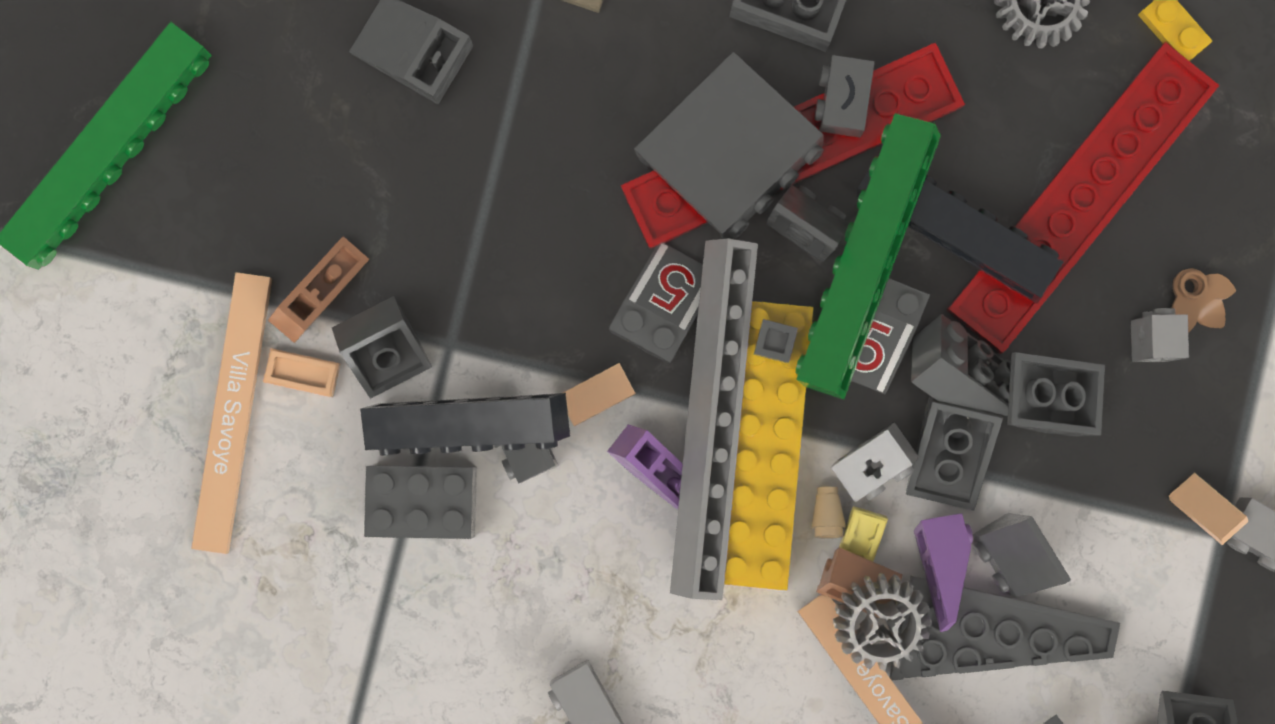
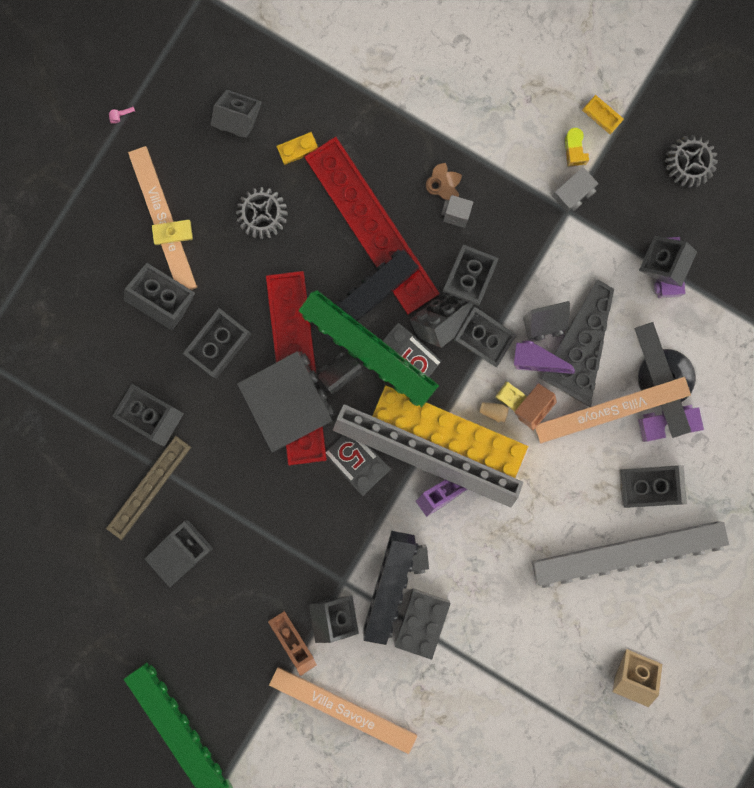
camera: 70 degrees left, 0 degrees up
(301, 372) = (333, 666): light nougat tile -> none
(598, 394) = (394, 512): light nougat tile -> none
(775, 341) = (397, 411): dark grey plate -> none
(845, 96) = (279, 332): dark grey brick -> none
(861, 641) = (566, 416): light grey gear -> none
(886, 446) = (470, 370): brick -> none
(1208, 508) = (553, 215): light nougat tile -> none

